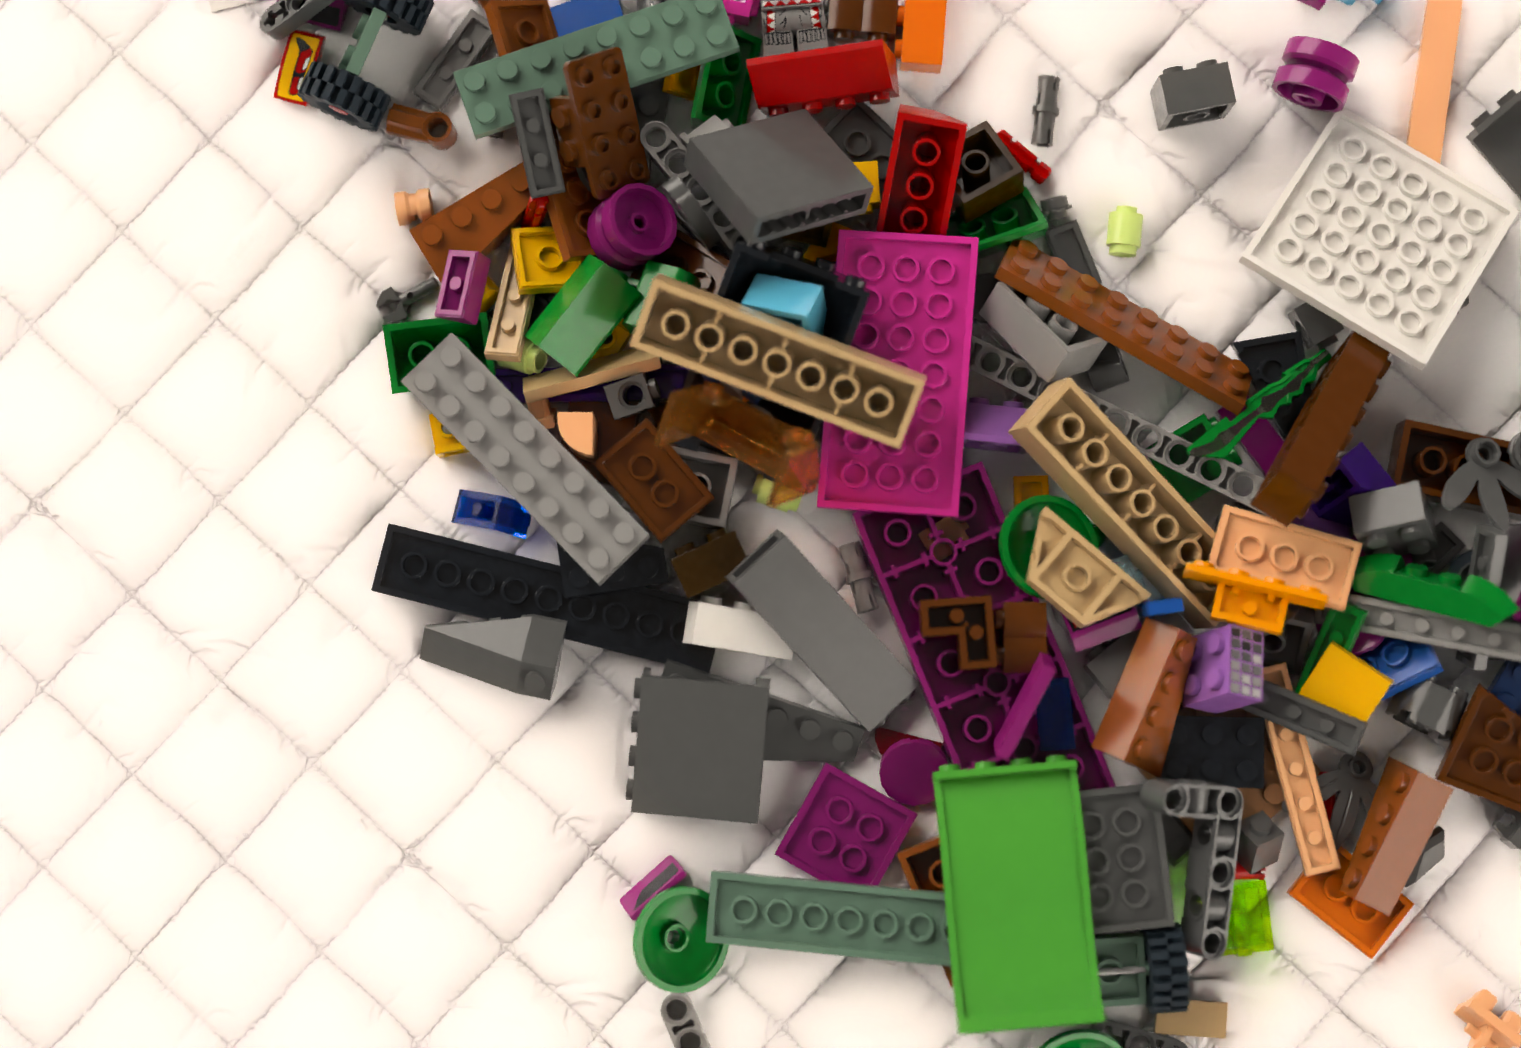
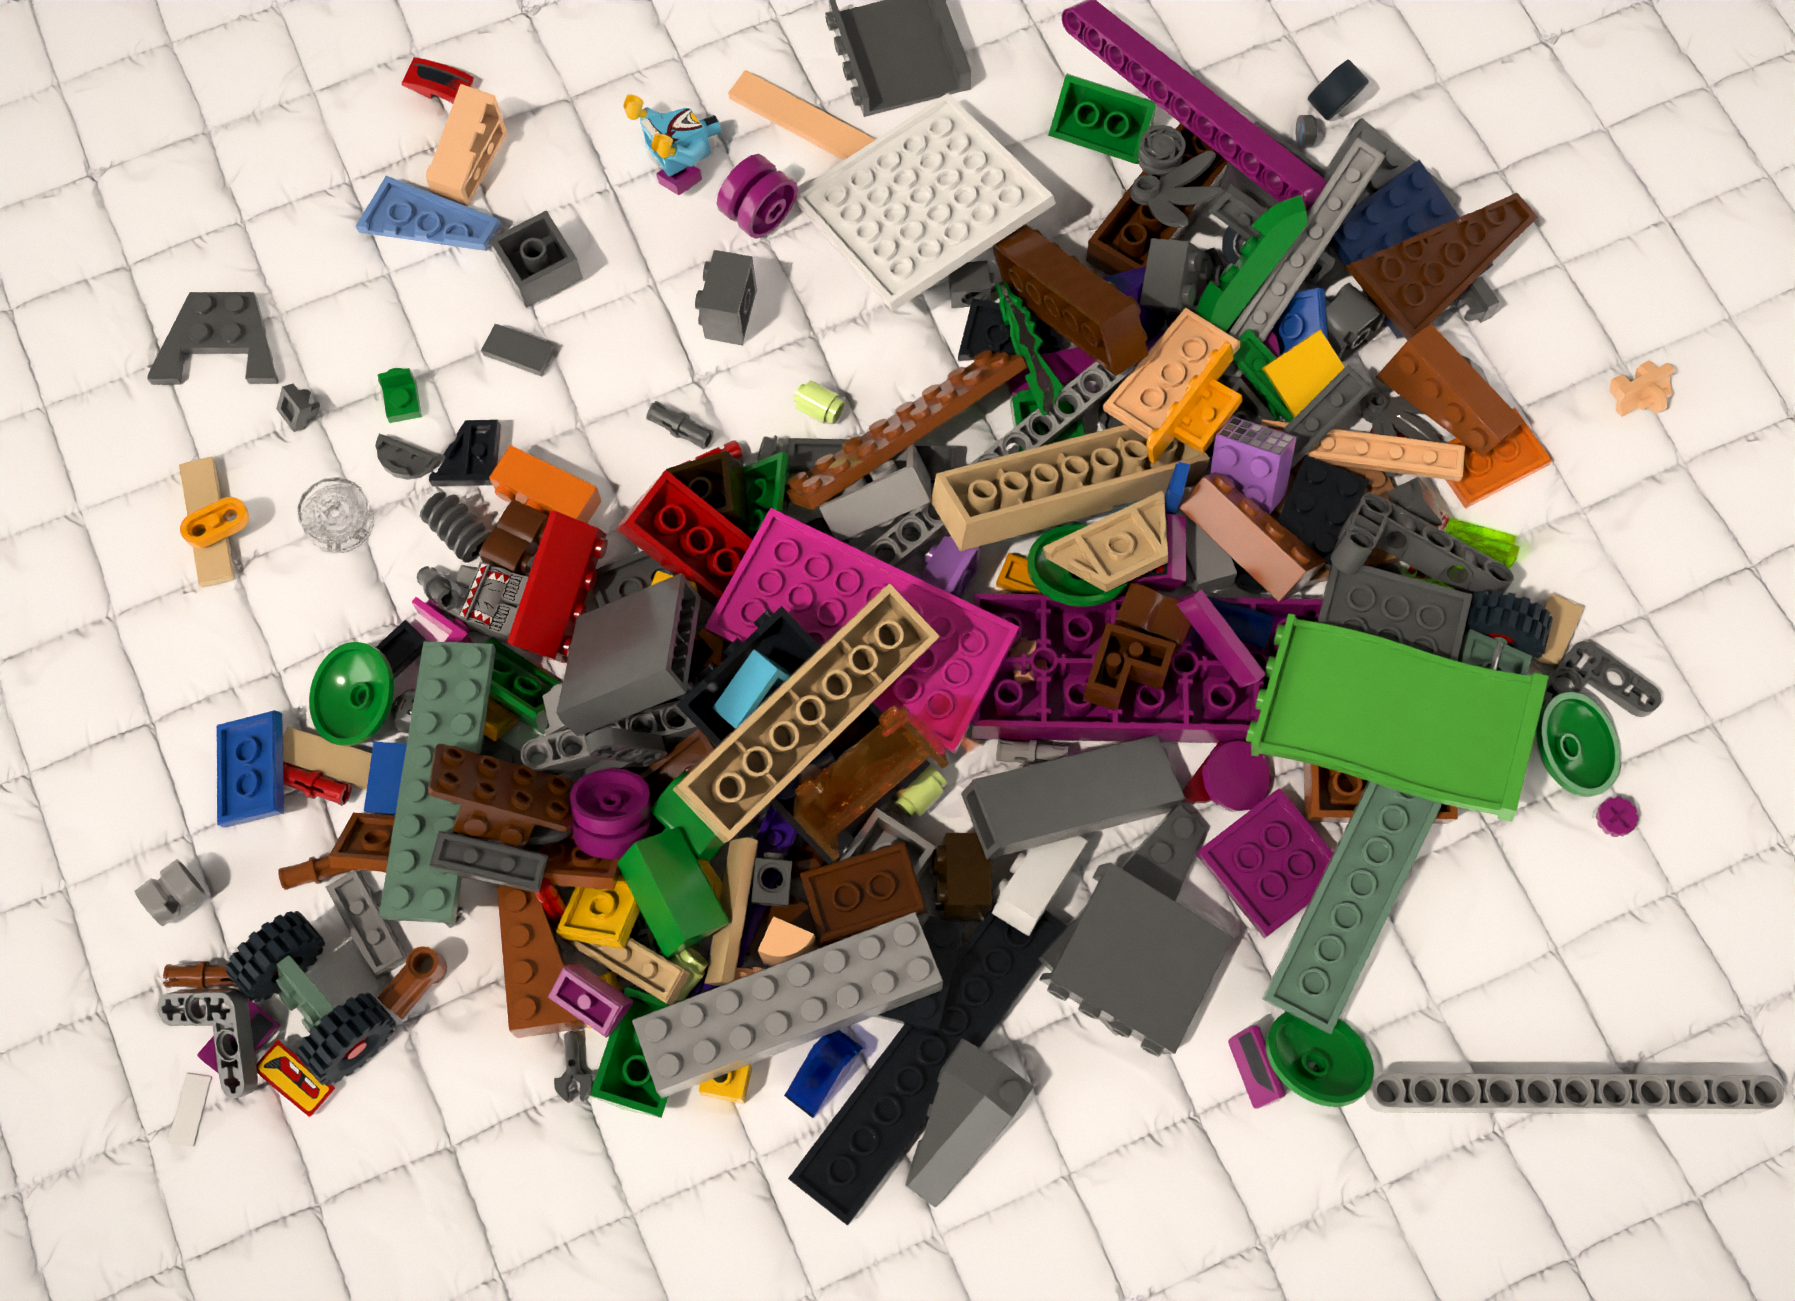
camera: 65 degrees left, 15 degrees down
(413, 206) = (487, 1021): light nougat wheel -> none

